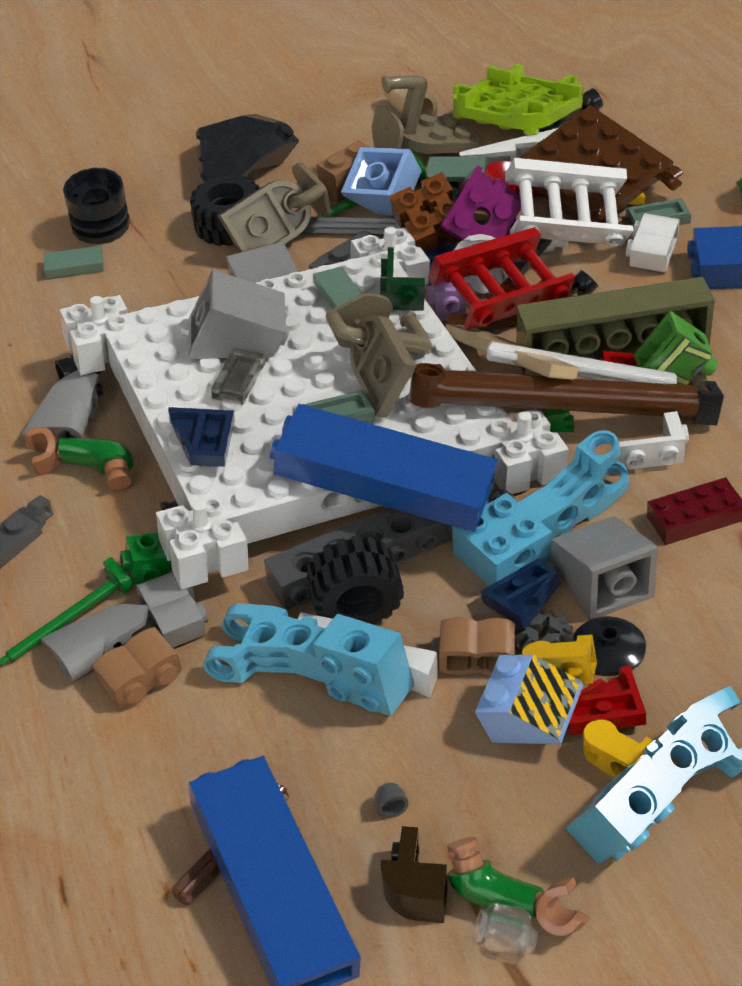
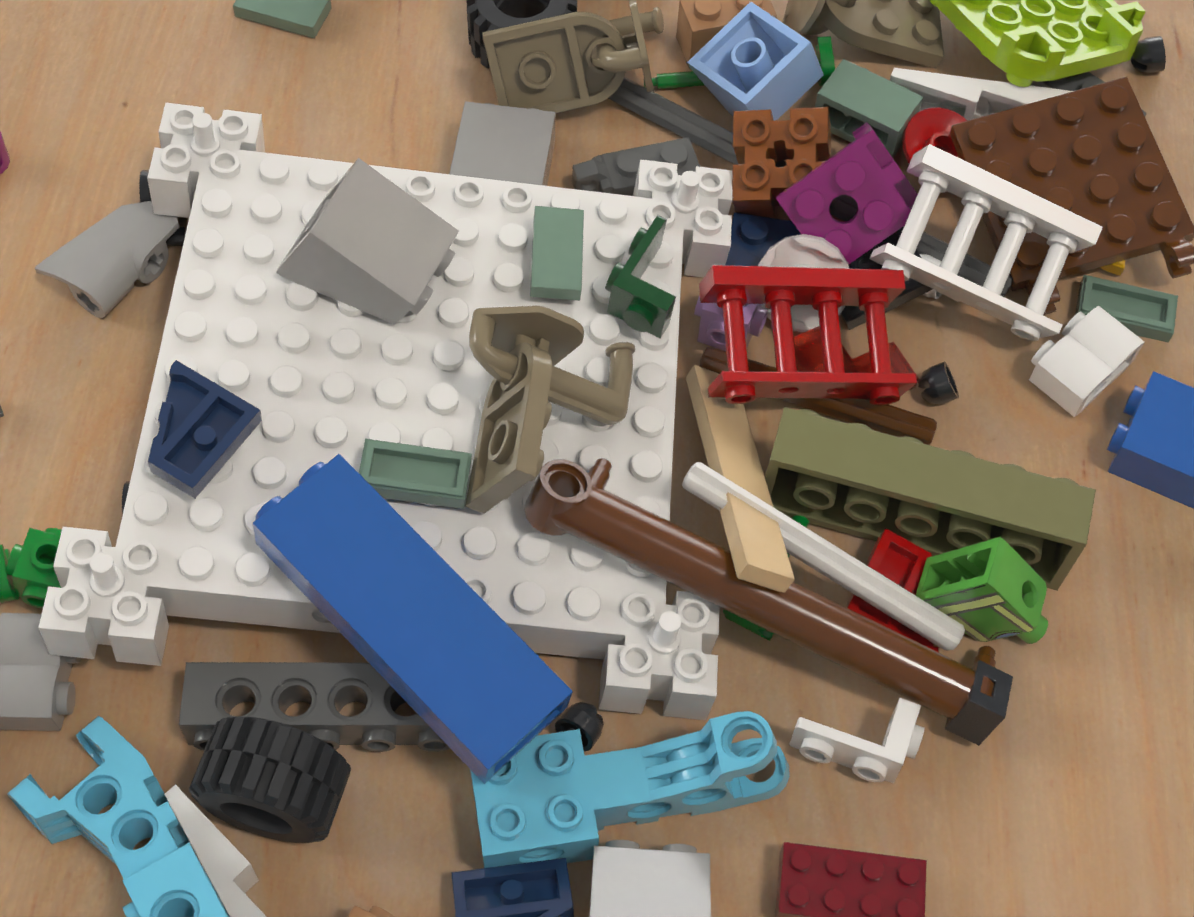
camera: 20 degrees right, 15 degrees up
(106, 455) = (111, 360): piece -> none
(238, 376) = (318, 341): clear smoke tile -> none

